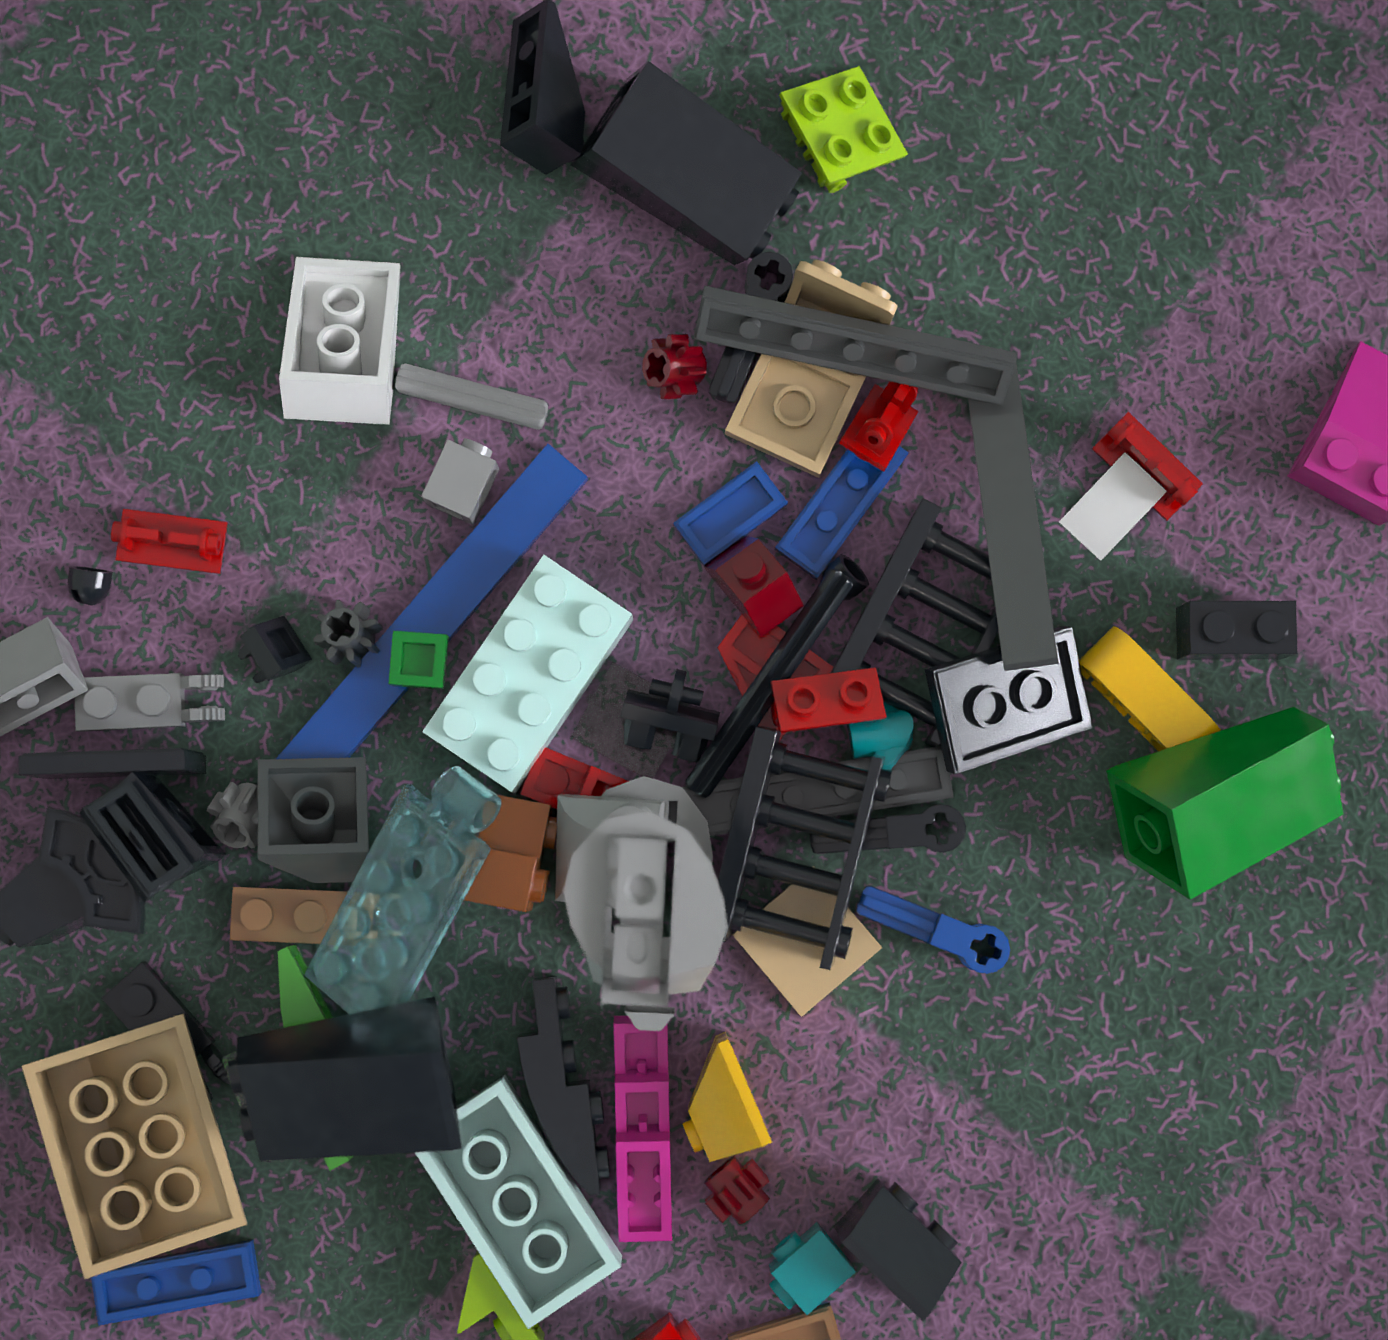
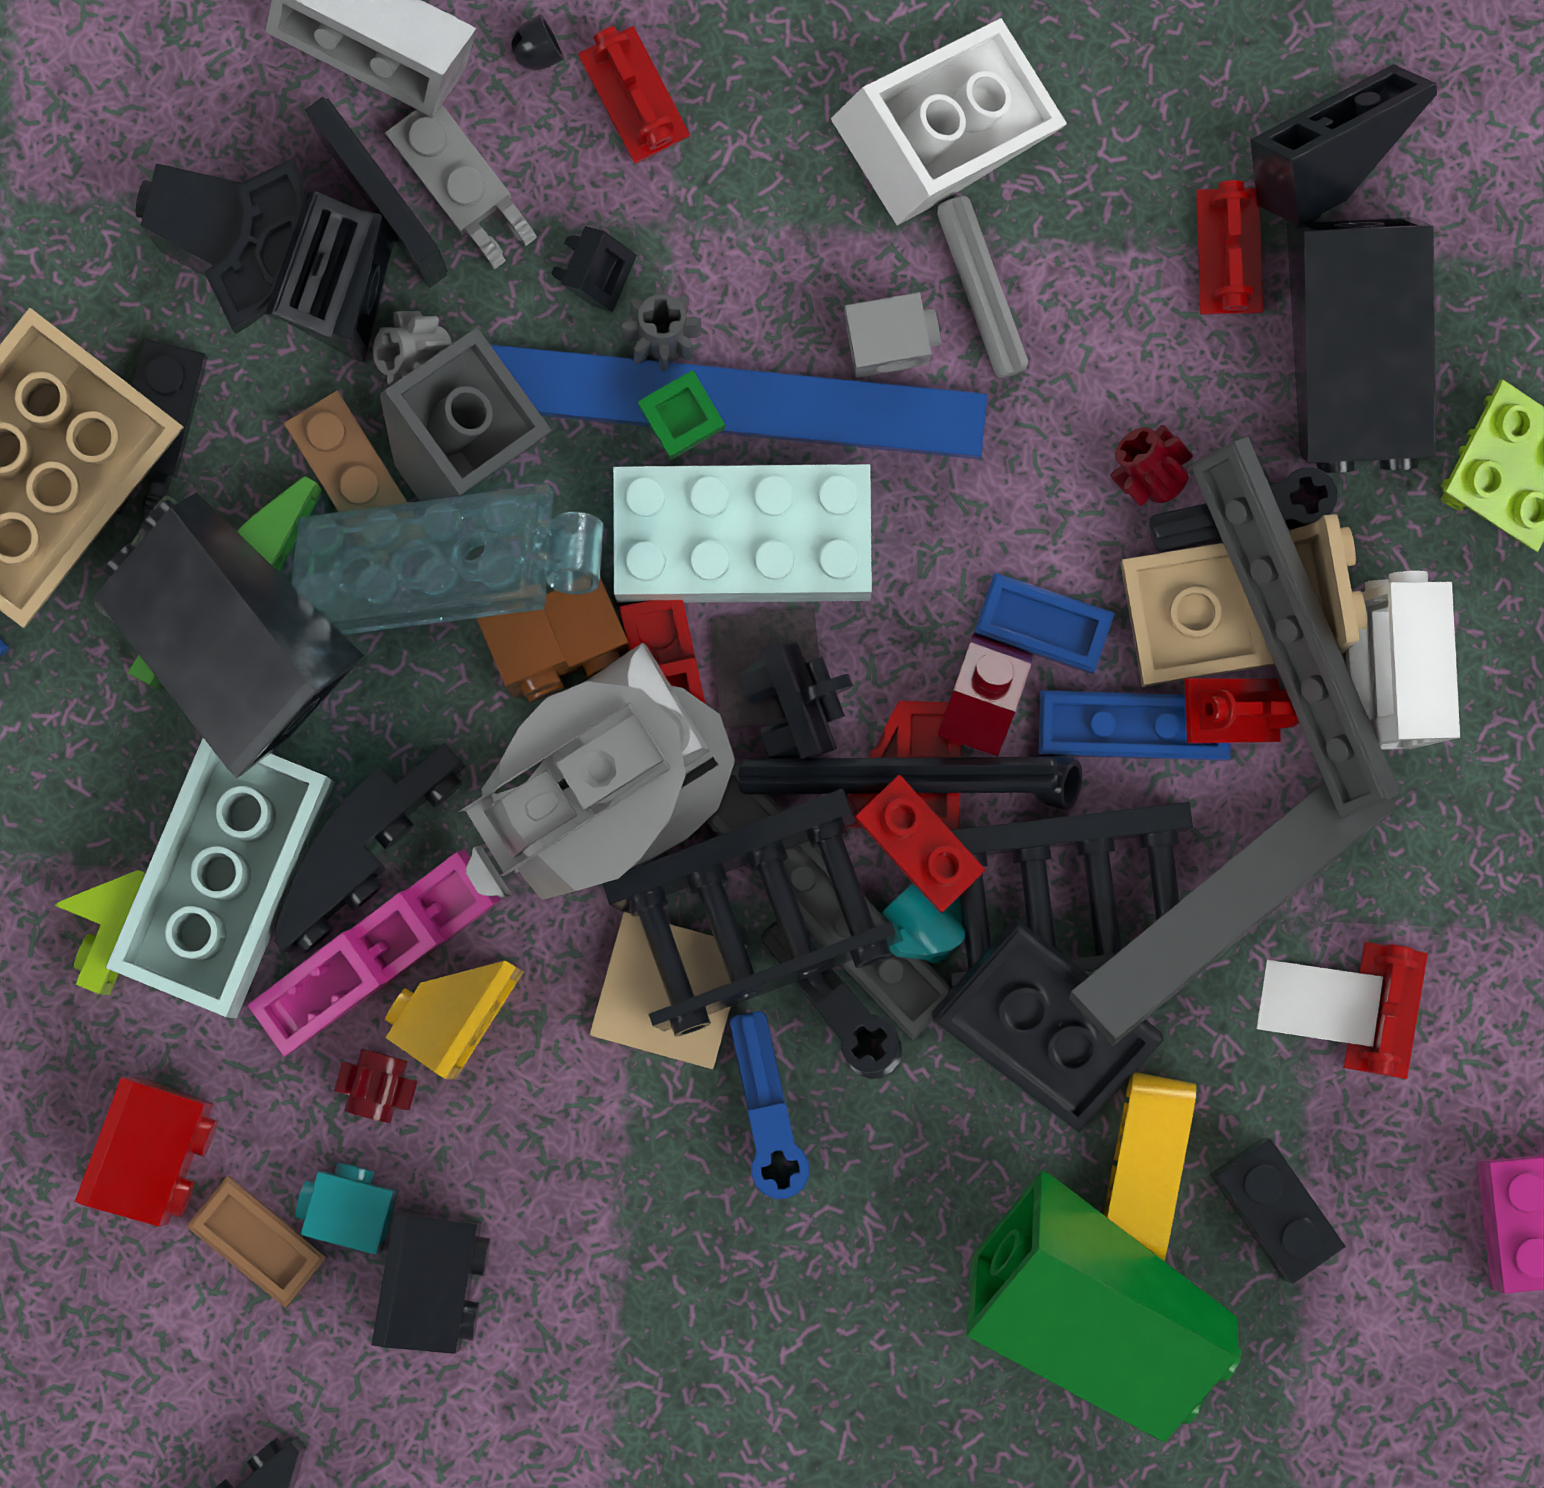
camera: 65 degrees right, 0 degrees up
(562, 214) = (1229, 250): none -> red hinge
(930, 283) = (1407, 661): none -> white window

